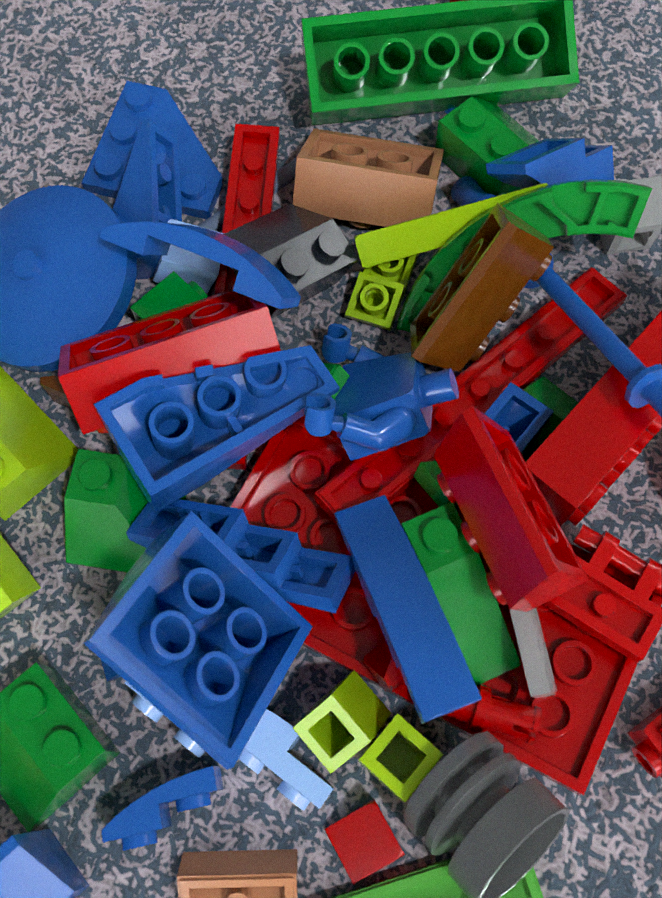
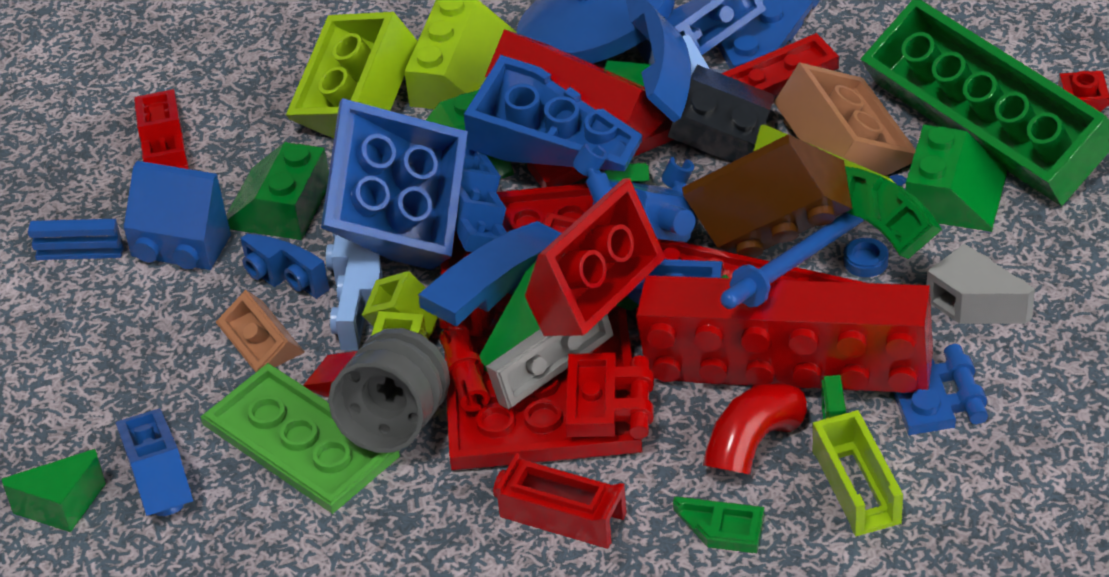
camera: 60 degrees right, 25 degrees down
(554, 162) = (946, 203): blue slope -> none

